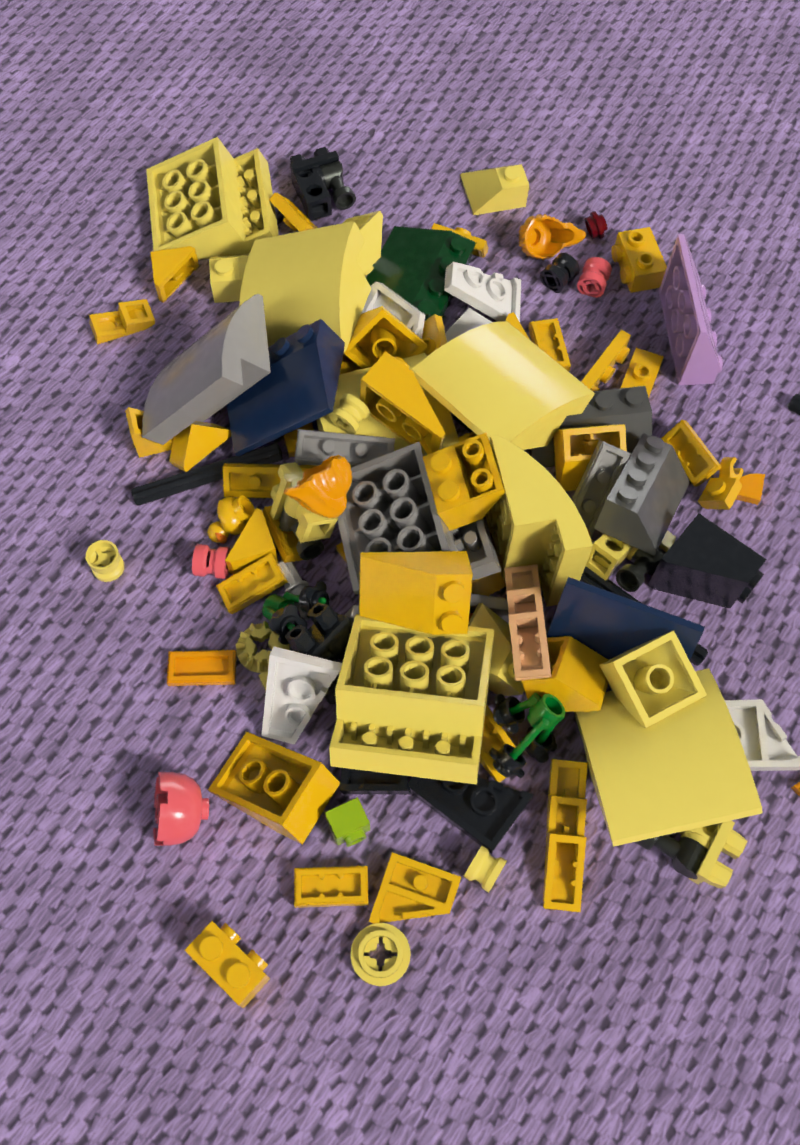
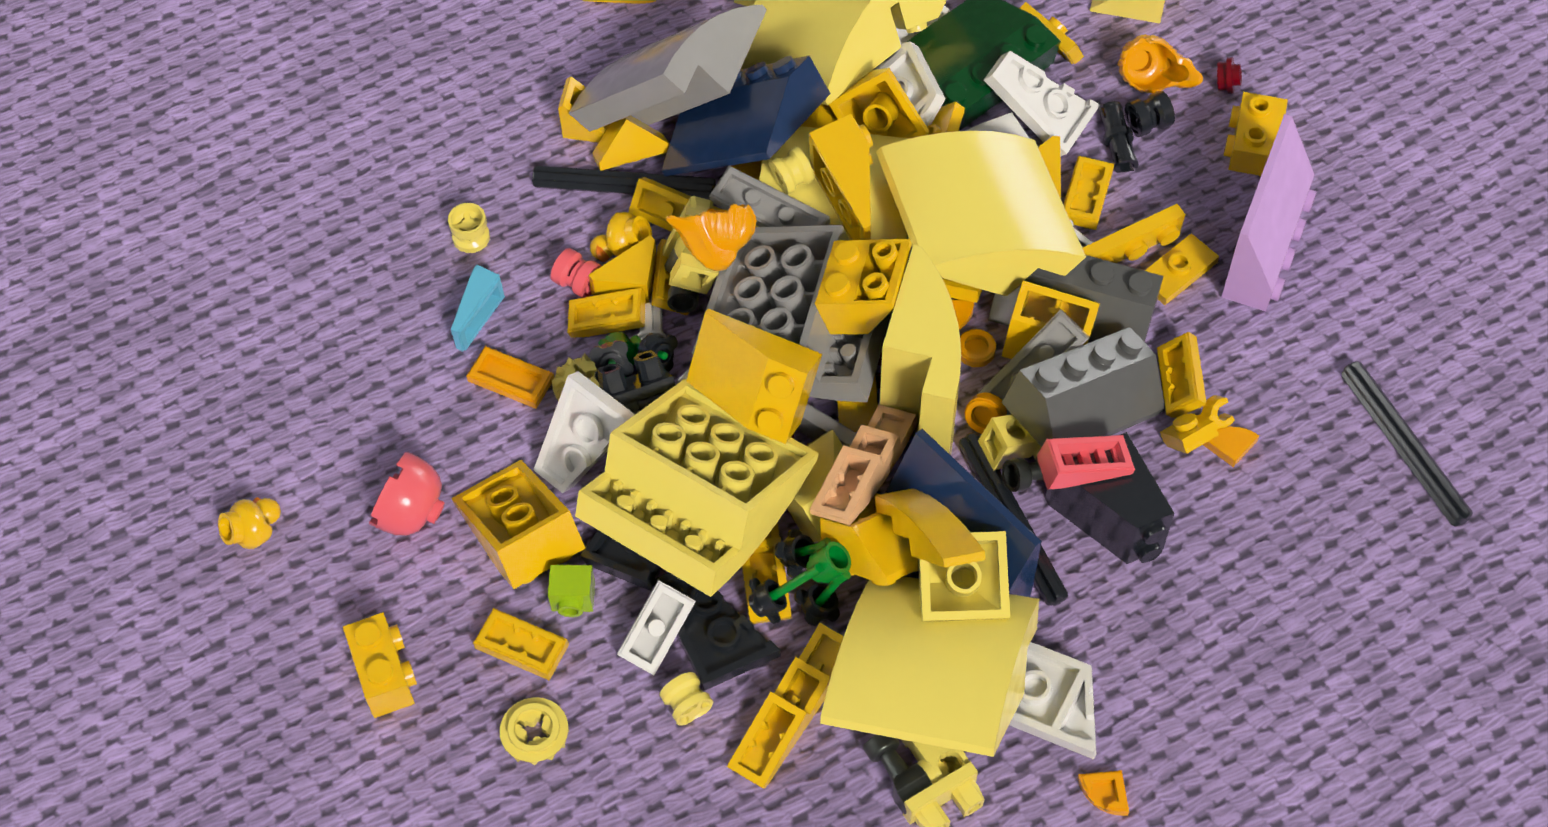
camera: 30 degrees right, 5 degrees down
(48, 892) = (249, 522): none -> yellow animal
(145, 616) = (478, 303): none -> medium azure slope
(413, 891) = (600, 686): yellow wing -> none
(430, 822) = (656, 627): none -> white slope
(546, 297) = (1118, 137): none -> black pin
(594, 277) = (1193, 131): coral wheel -> none
(628, 655) = (931, 528): none -> yellow slope
(672, 562) = (1059, 467): none -> coral slope

